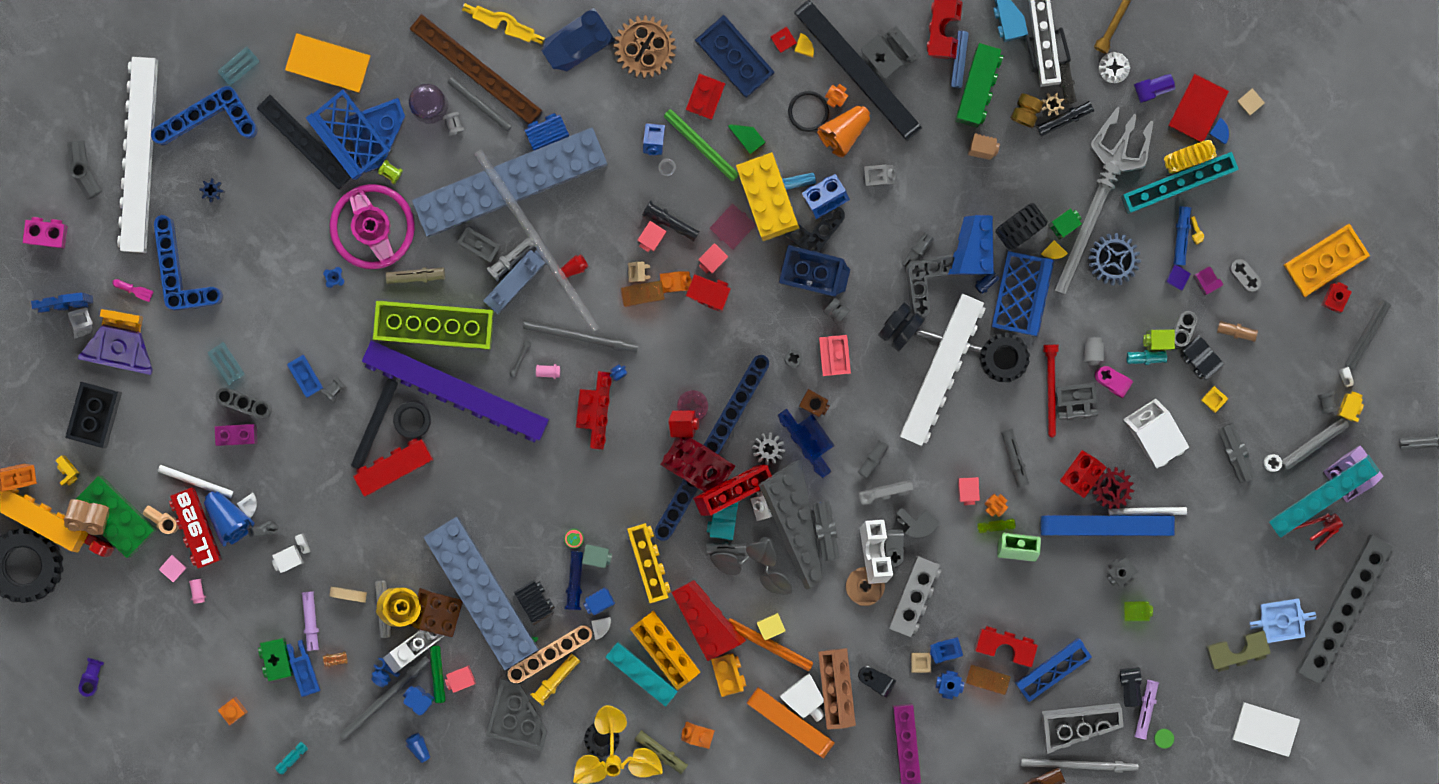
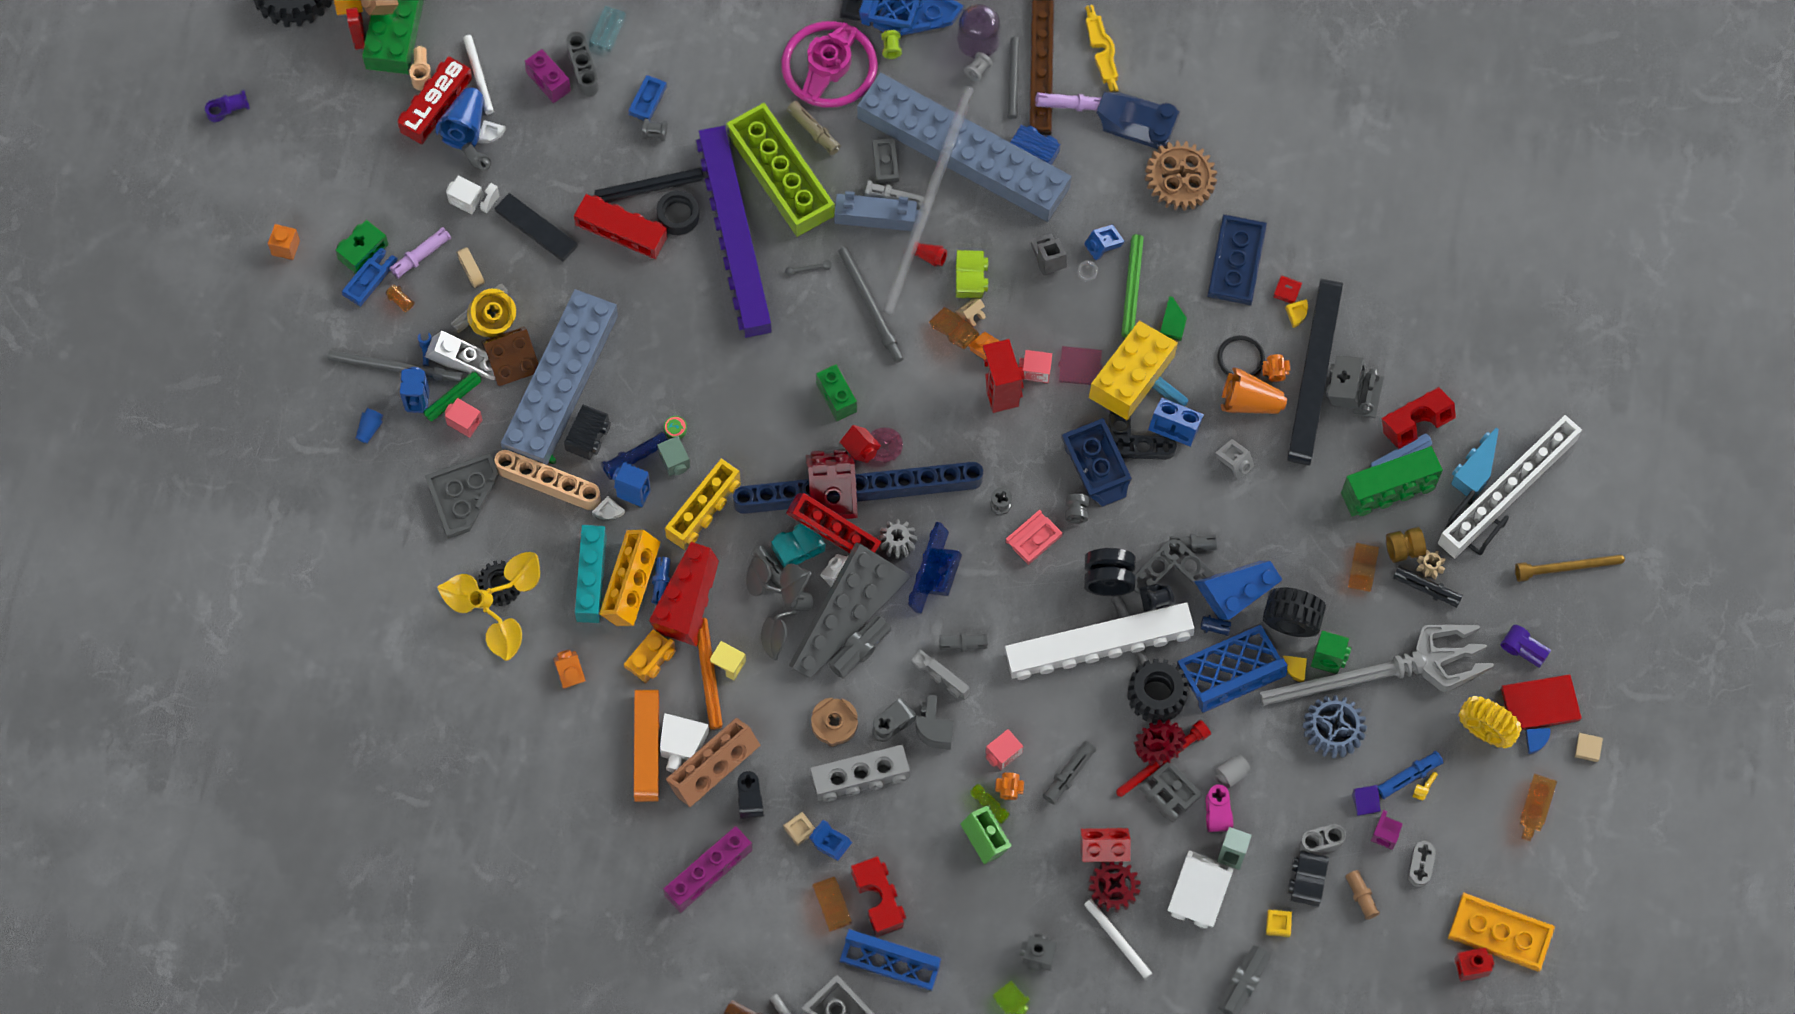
camera: 55 degrees right, 20 degrees down
(172, 568) = (382, 108): bright pink tile -> none
(197, 591) = (375, 141): bright pink pin -> none
(291, 758) = (275, 324): teal axle -> none
(334, 272) = (754, 58): blue plate -> none
(348, 525) = (536, 227): none -> black tile
(380, 678) = (411, 348): blue plate -> none
(534, 75) = (1066, 101): none -> lavender pin
(548, 371) = (816, 298): bright pink pin -> none
(549, 686) = (517, 501): yellow pin -> none
(594, 408) = (811, 359): red bracket -> none
(610, 251) = (970, 274): none -> lime brick
(618, 372) = (863, 358): blue plate -> none
(631, 411) = (836, 392): none -> green brick
(636, 186) = (1049, 253): none -> flat silver brick
(651, 237) = (1012, 299): coral brick -> none
(660, 216) = (1040, 296): black pin -> none
(664, 754) = (526, 656): olive pin -> none
(679, 629) = (660, 579): none -> blue pin
(705, 96) = (1179, 260): red plate -> none
(805, 403) = (973, 540): reddish brown brick -> none
(877, 564) = (876, 701): white arch -> none
(941, 310) = (1156, 596): none -> black piece
(941, 684) = (801, 875): blue brick -> none
(983, 147) = (1338, 526): medium nougat brick -> none
(1019, 150) = (1363, 567): none -> clear orange slope
(1037, 375) = (1160, 742): none -> dark red gear
(1067, 84) = (1461, 565): clear smoke pin -> none
(1107, 74) = (1512, 608): white gear -> none
(1108, 525) = (1074, 908): blue beam -> none
(1146, 357) = (1266, 826): teal pin -> none
(1147, 391) = (1234, 848): none -> brick
(1159, 340) = (1293, 821): lime brick -> none
(1179, 182) = (1457, 732): teal brick -> none
(1264, 169) = (1537, 805): none -> clear orange hinge

